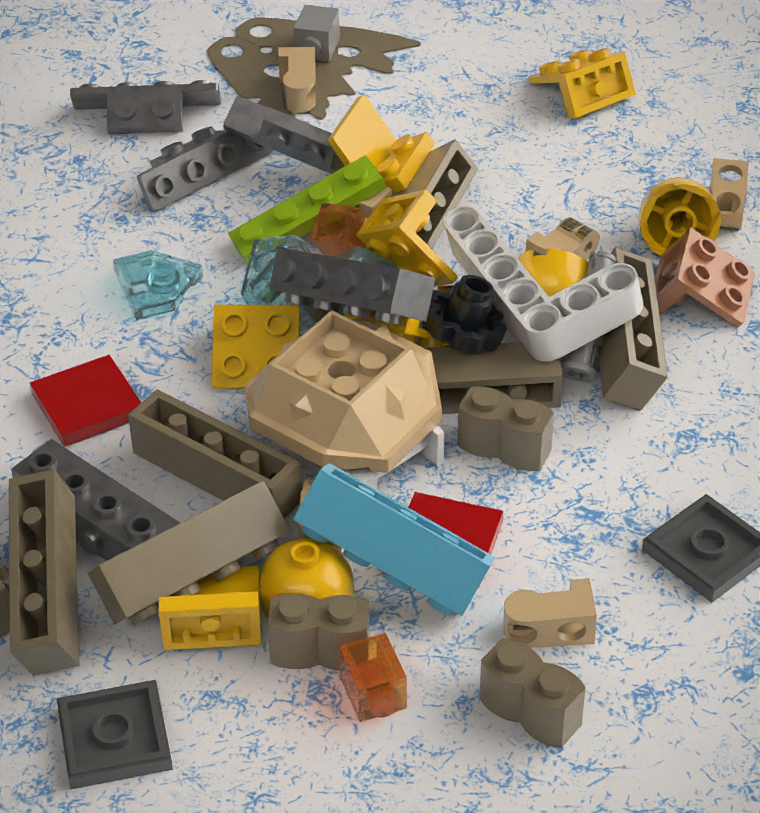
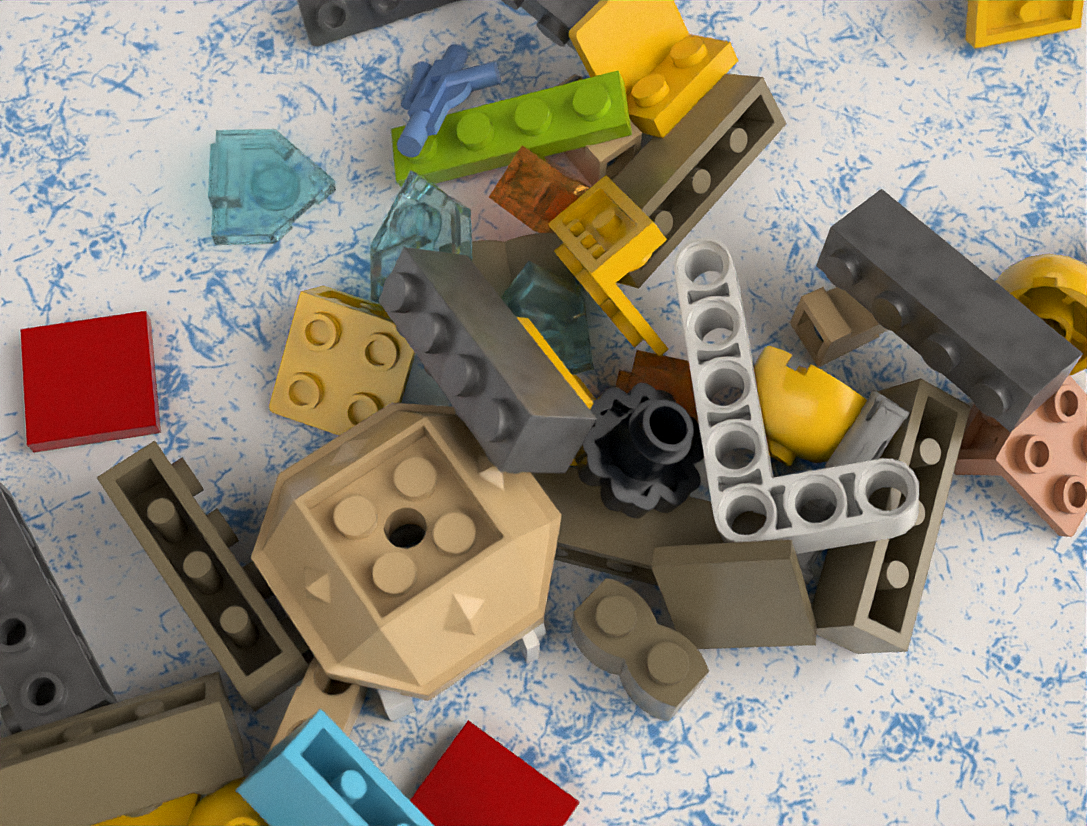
camera: 15 degrees right, 25 degrees up
(254, 201) = (436, 91): none -> medium blue piece
(555, 369) = (736, 594): none -> dark tan tile
(615, 212) = (947, 309): none -> flat silver brick

